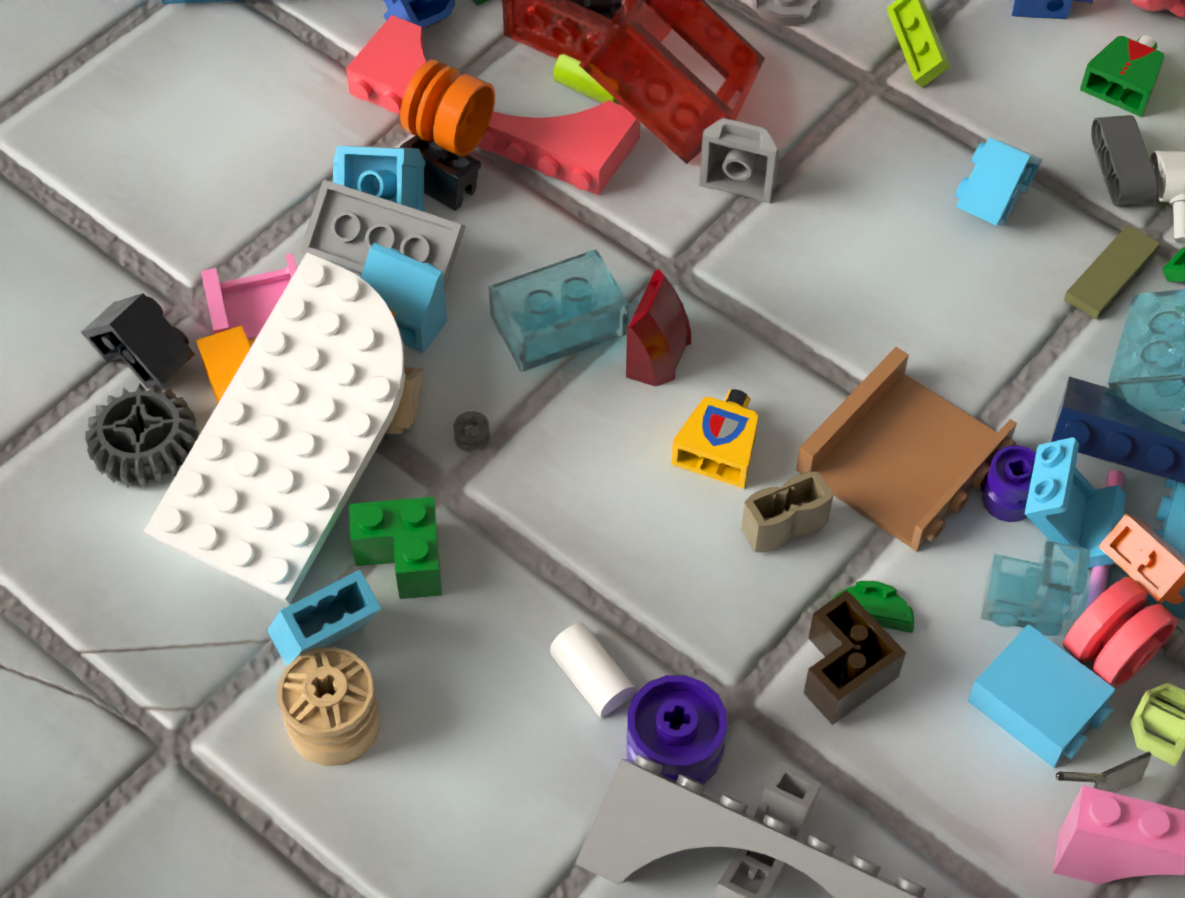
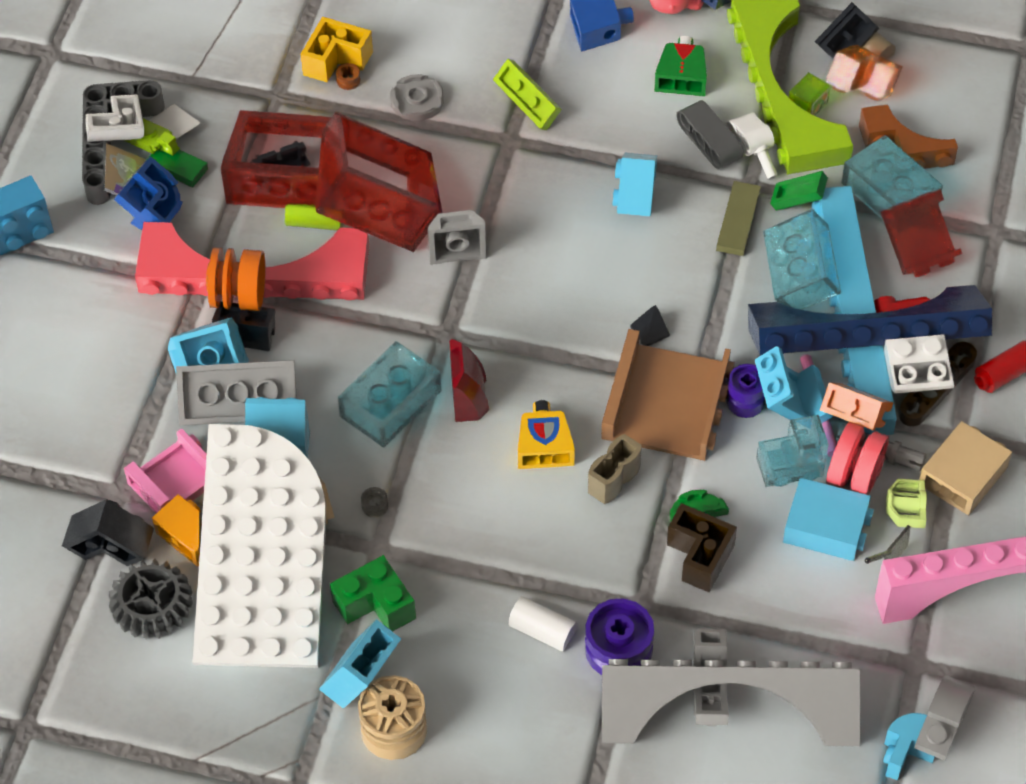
camera: 25 degrees left, 0 degrees up
(929, 358) = (651, 327): none -> black slope

